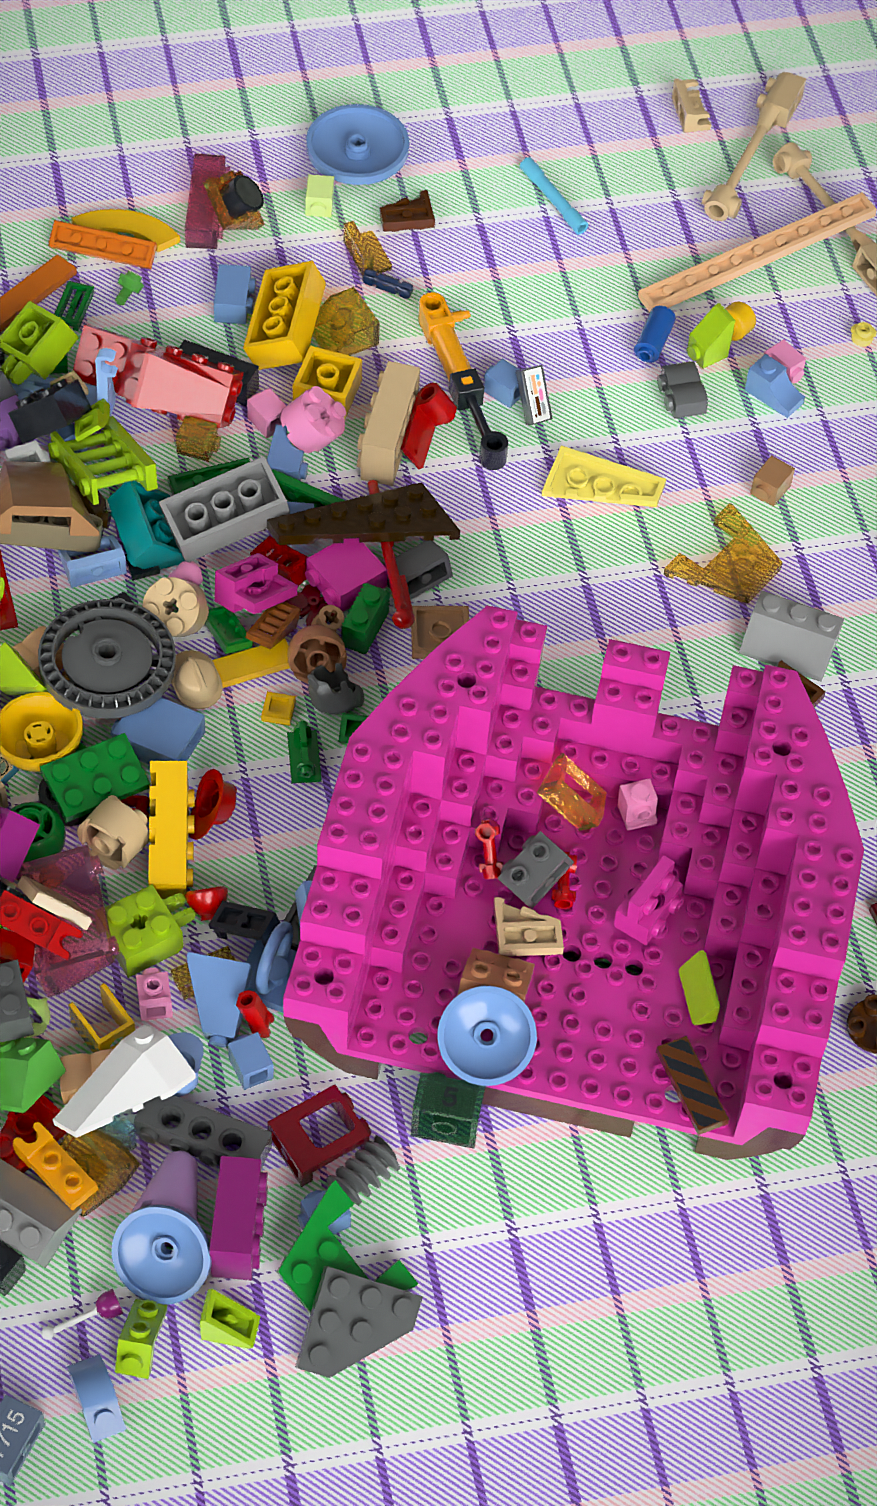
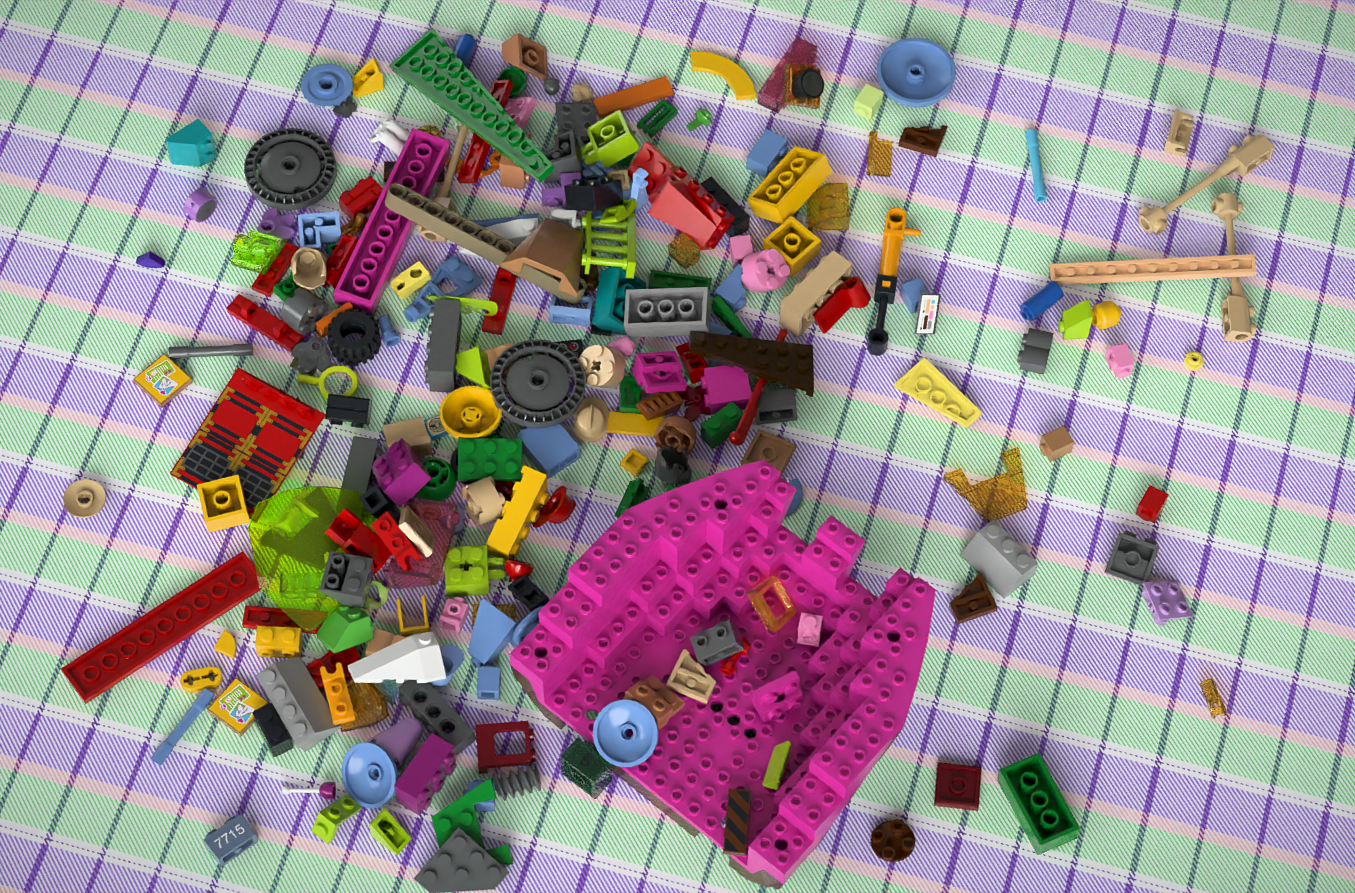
camera: 30 degrees right, 5 degrees up
(96, 1397) = (290, 840): medium blue brick -> none
(102, 244) = (700, 80): orange tile -> none
(255, 1013) = (503, 652): red bar -> none
(325, 614) = (697, 411): medium nougat bush -> none
(387, 283) = (878, 187): dark blue axle -> none
(486, 833) = (697, 605): red bar -> none
(770, 384) = (1101, 375): medium blue arch -> none

